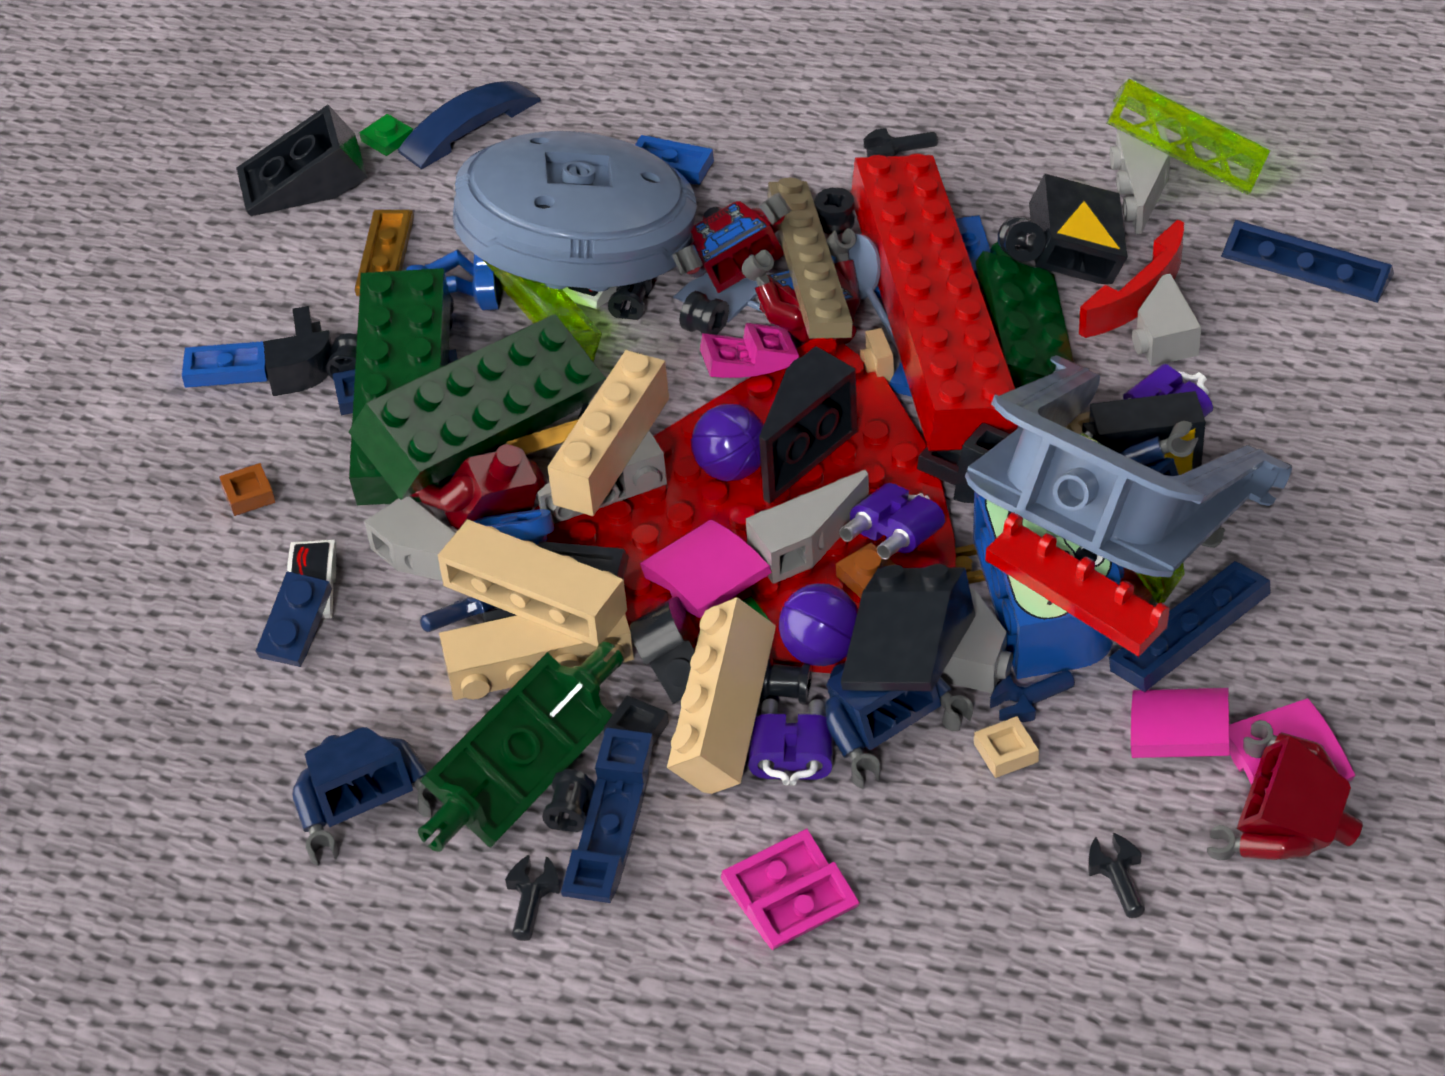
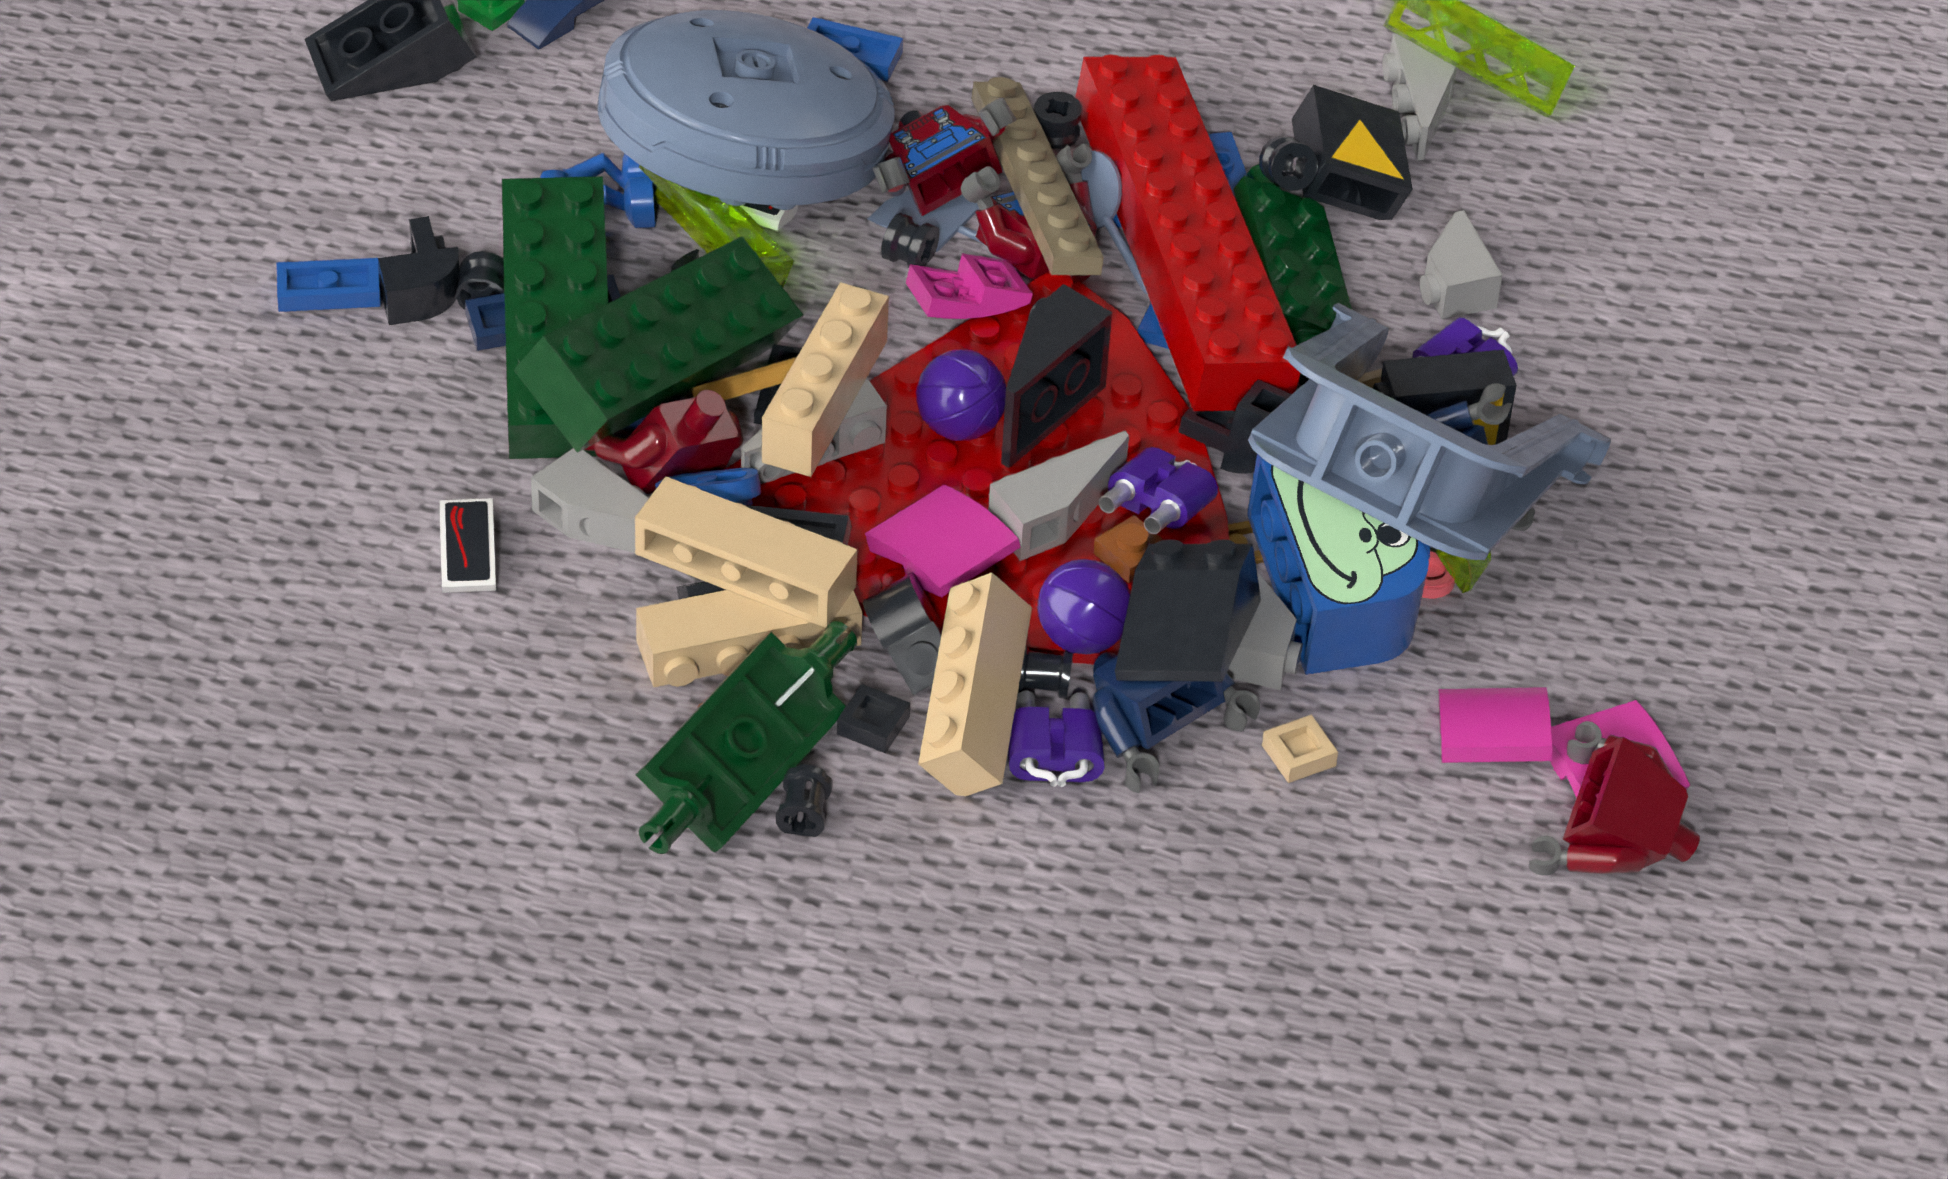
camera: 10 degrees left, 0 degrees up
(247, 489) = (375, 436): dark orange plate -> none
(294, 619) = (455, 590): dark blue plate -> none
(351, 777) = (552, 770): dark blue torso -> none
(386, 242) = (505, 147): pearl gold tile -> none
(453, 613) = (649, 585): dark blue bar -> none
(530, 894) = (768, 903): black bar -> none
(611, 817) = (854, 816): dark blue slope -> none
(619, 299) = (825, 227): black bush -> none
(789, 889) = (1064, 900): dark pink slope -> none
(878, 354) = (1123, 295): tan plate -> none
(881, 143) = (1120, 41): black bar -> none
(1028, 696) = (1320, 693): dark blue bar -> none
(1077, 586) = (1380, 567): red hinge -> none
(1115, 308) = (1398, 249): red slope -> none
(1119, 872) = (1432, 886): black bar -> none
(1193, 625) = (1500, 618): dark blue plate -> none
(1308, 261) = (1620, 200): dark blue slope -> none

